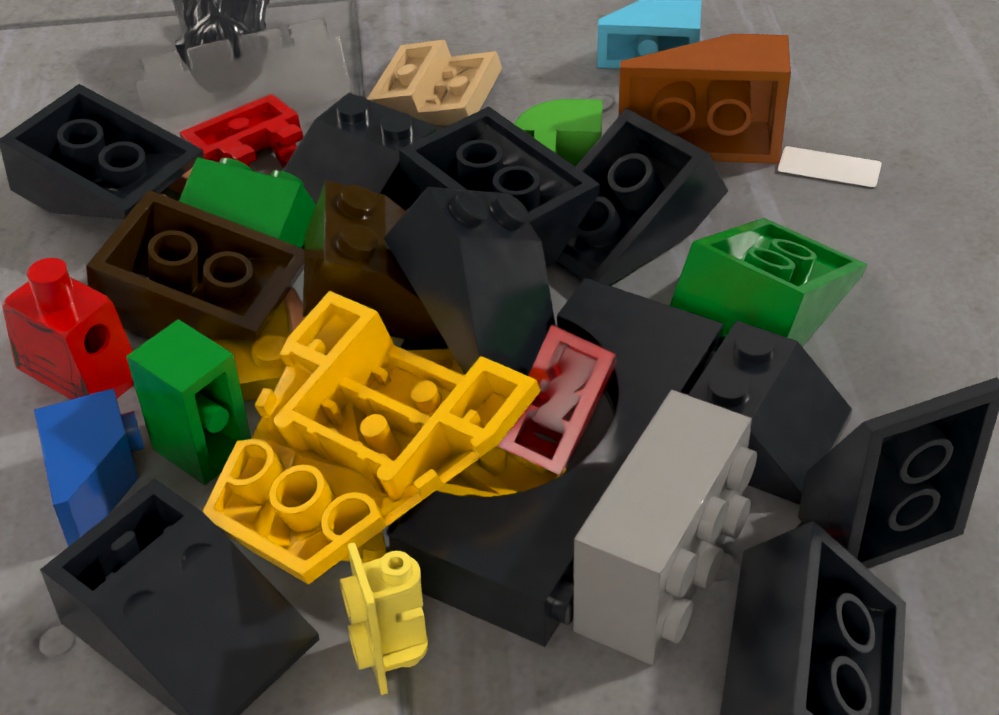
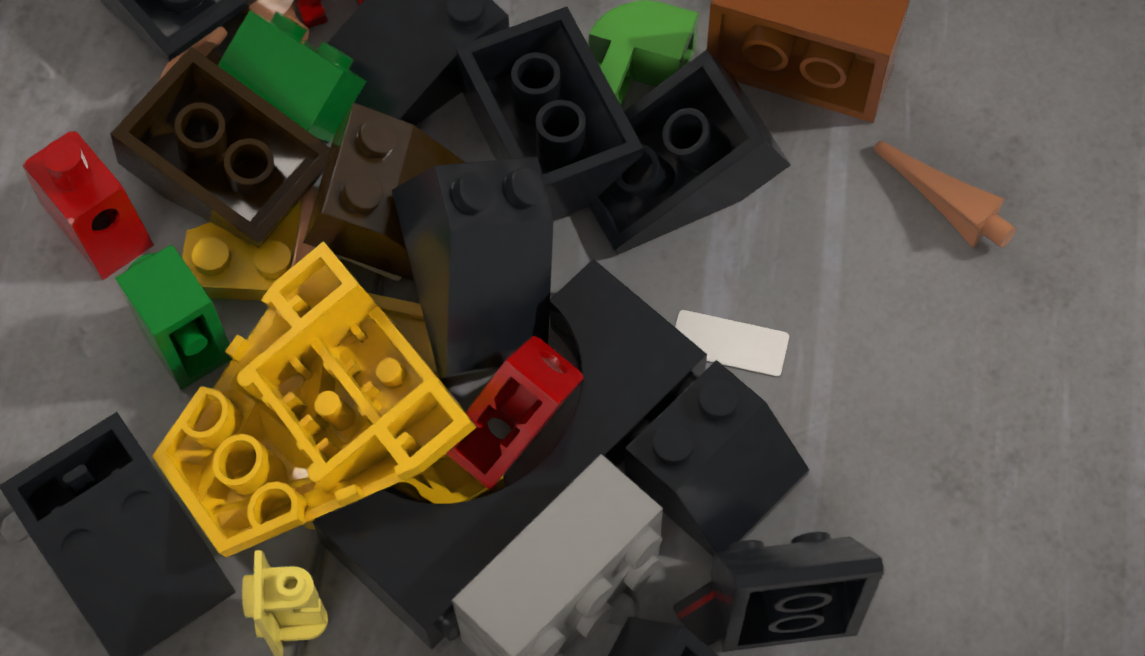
camera: 15 degrees right, 20 degrees up
(87, 458) = (74, 347): blue slope -> none
(765, 279) = (783, 298): green slope -> none
(830, 166) = (924, 140): white sticker -> none
(889, 195) = (967, 208): none -> nougat piece

